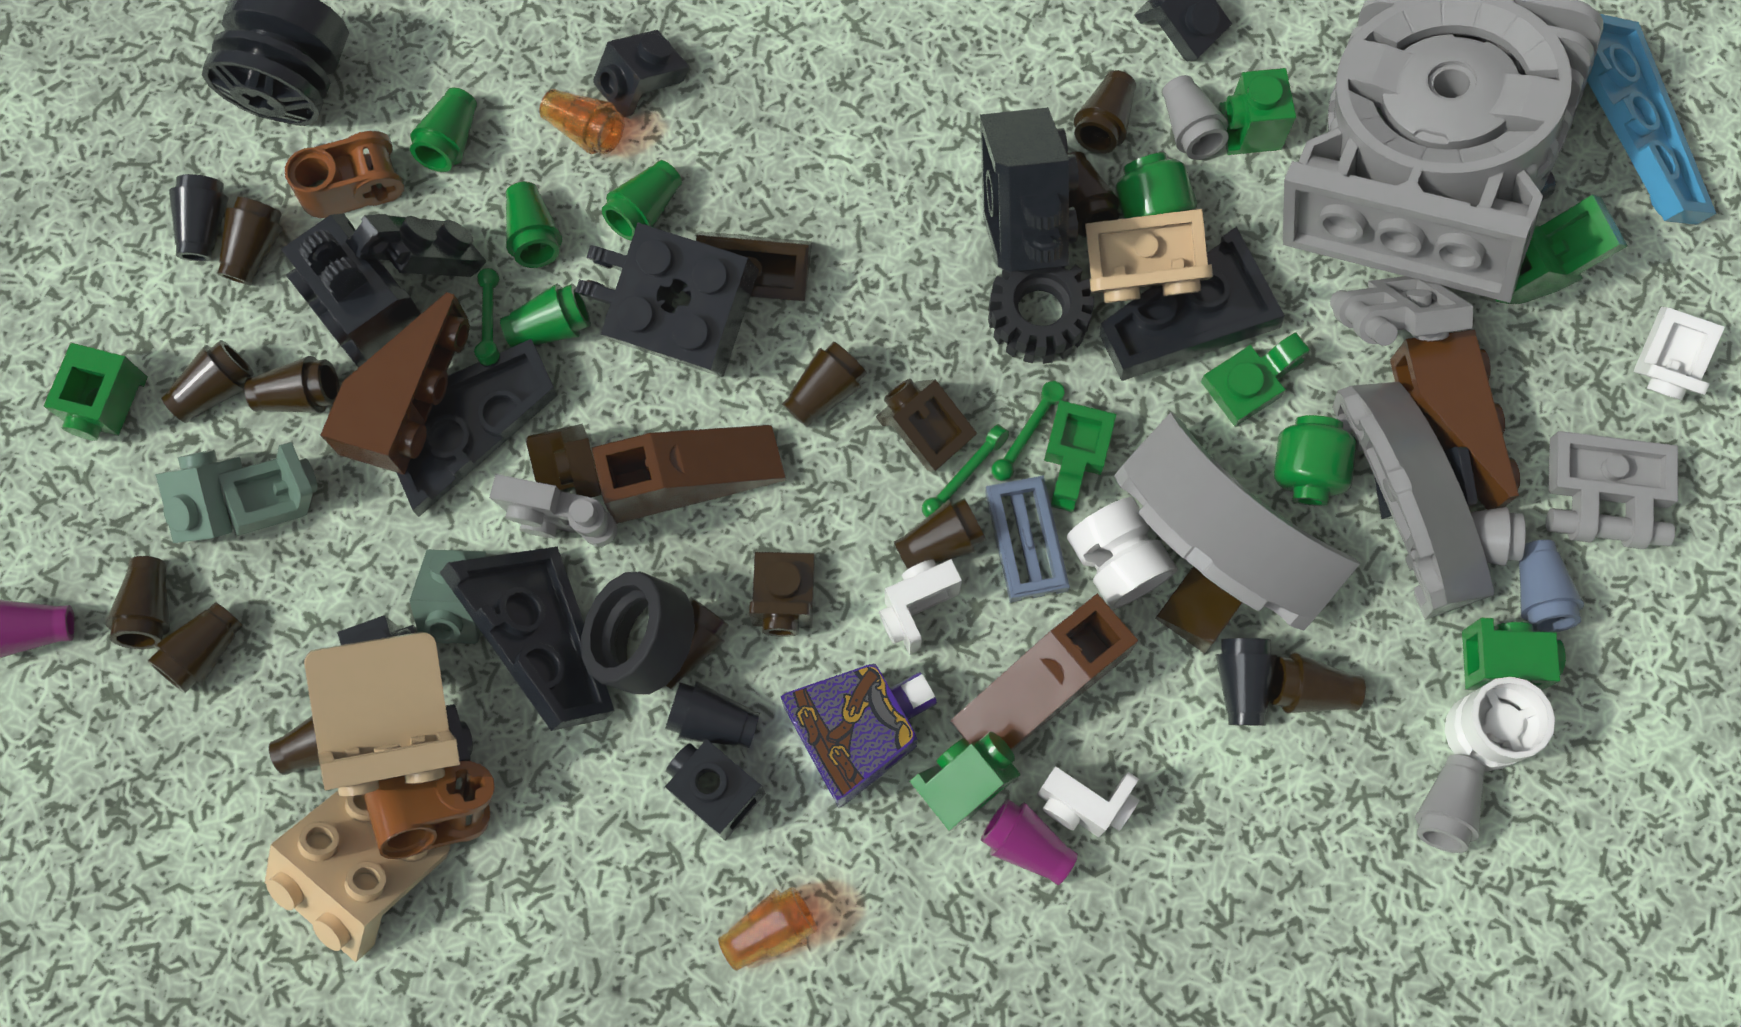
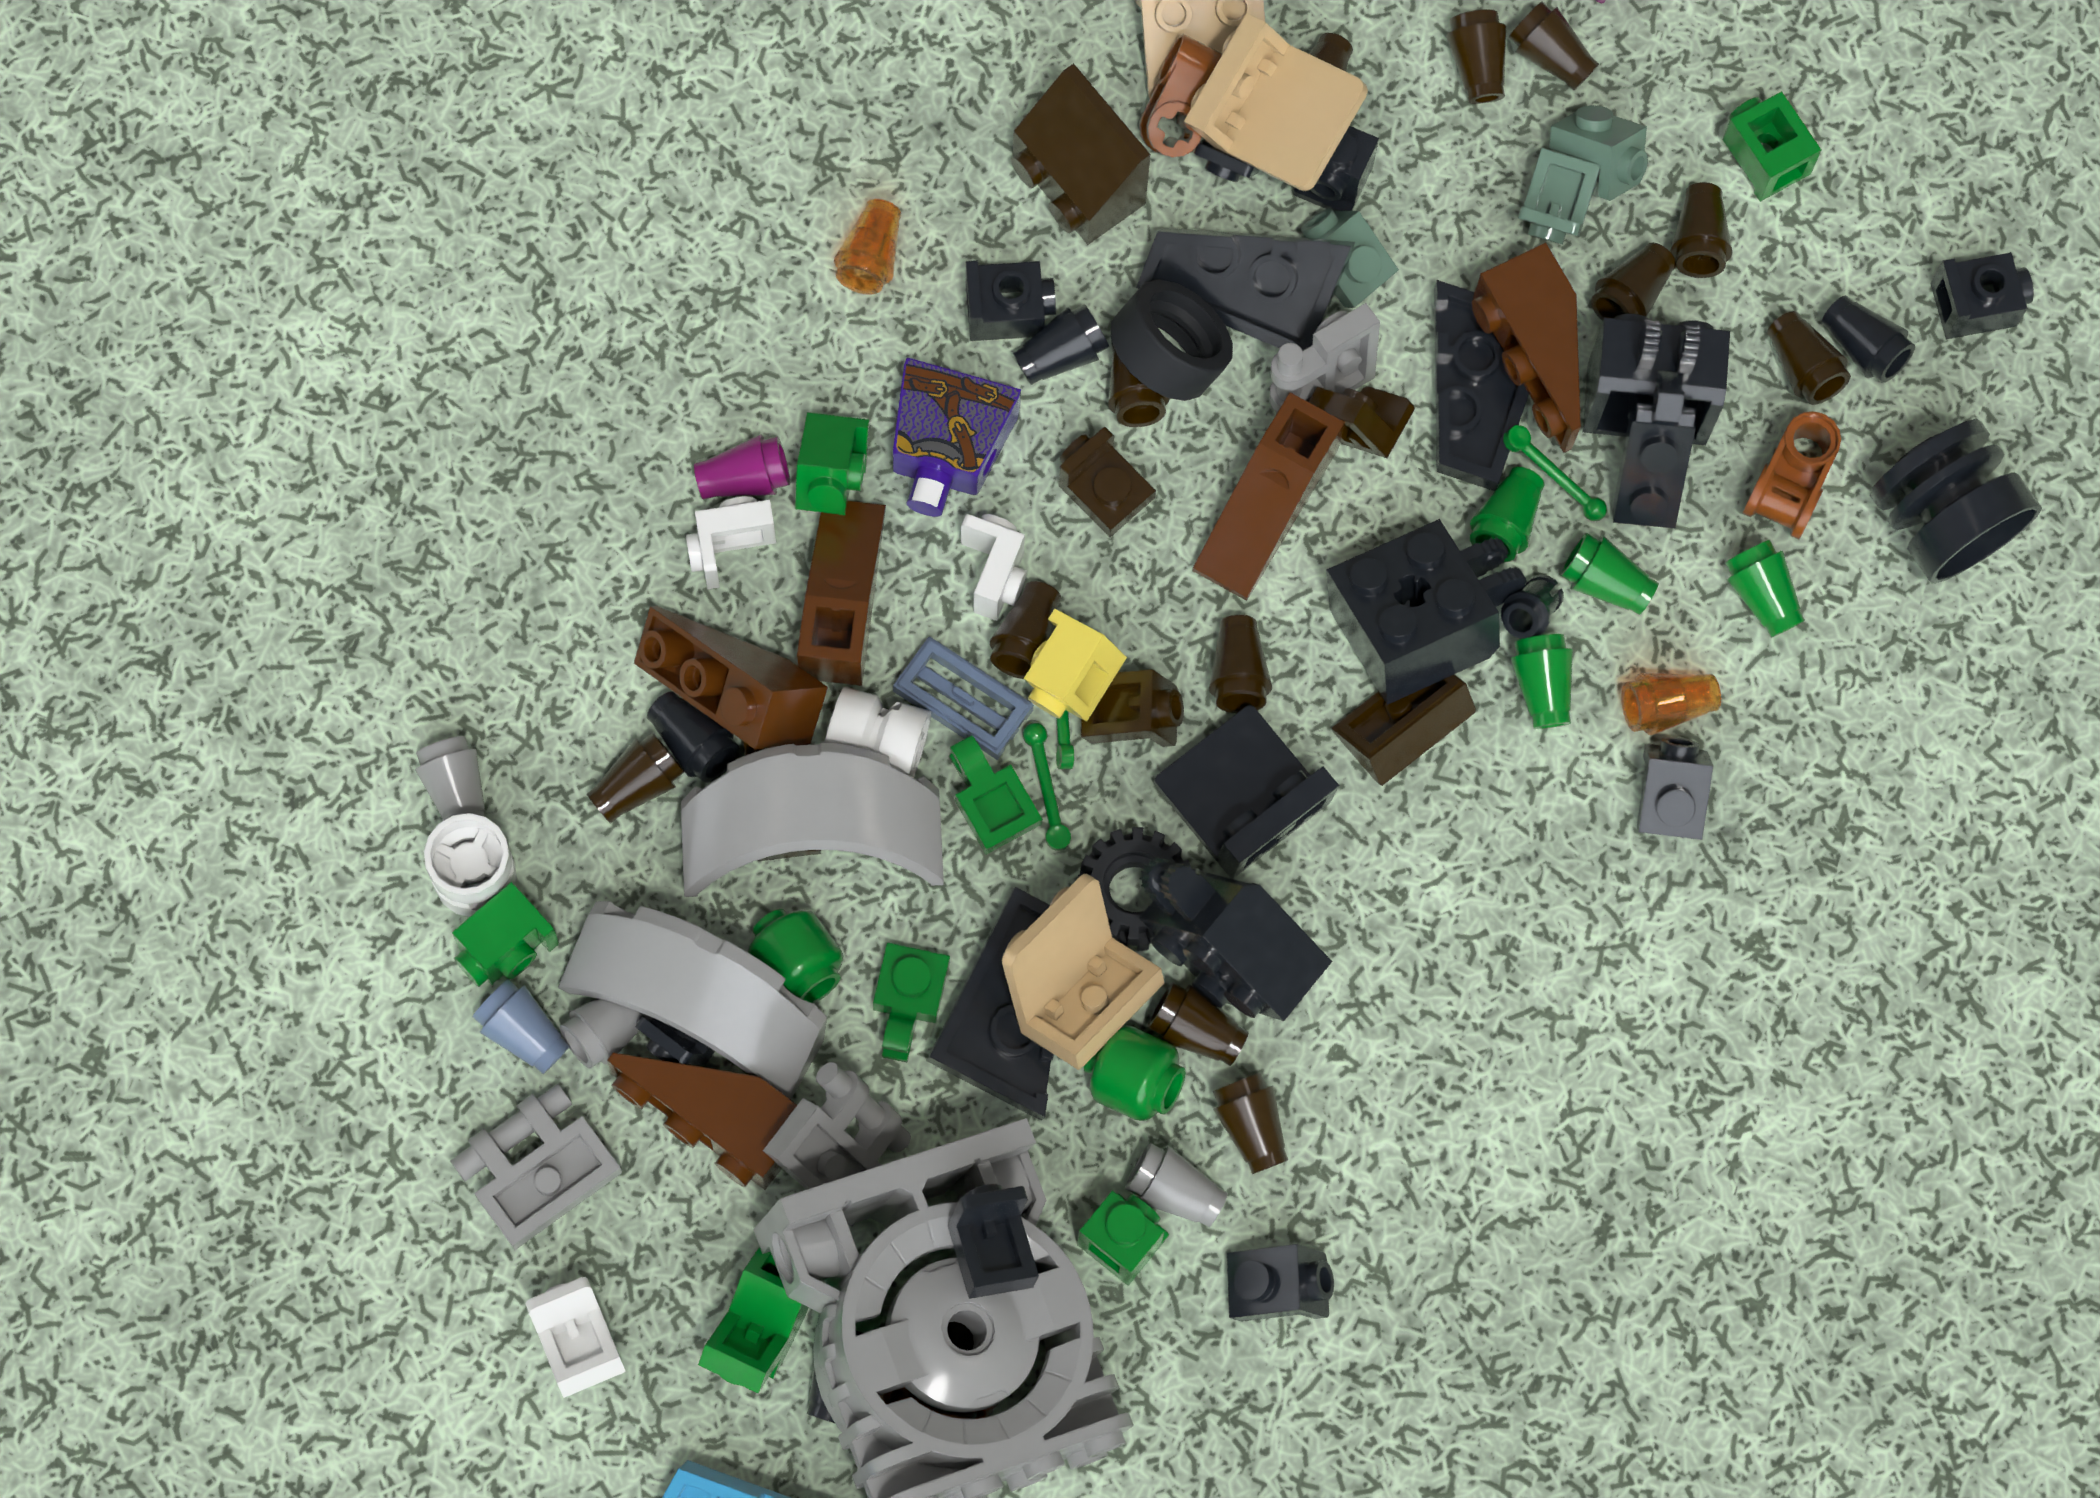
camera: 130 degrees right, 0 degrees up
(91, 171) = (1970, 309): none -> black brick
(552, 835) = (1081, 157): none -> dark brown slope
(610, 231) = (1529, 610): none -> black pin
(908, 294) = (1243, 790): none -> black bracket
(945, 469) = (1072, 668): none -> light yellow brick
(1188, 674) = (732, 681): none -> reddish brown slope
(1395, 103) = (992, 1241): none -> black bracket

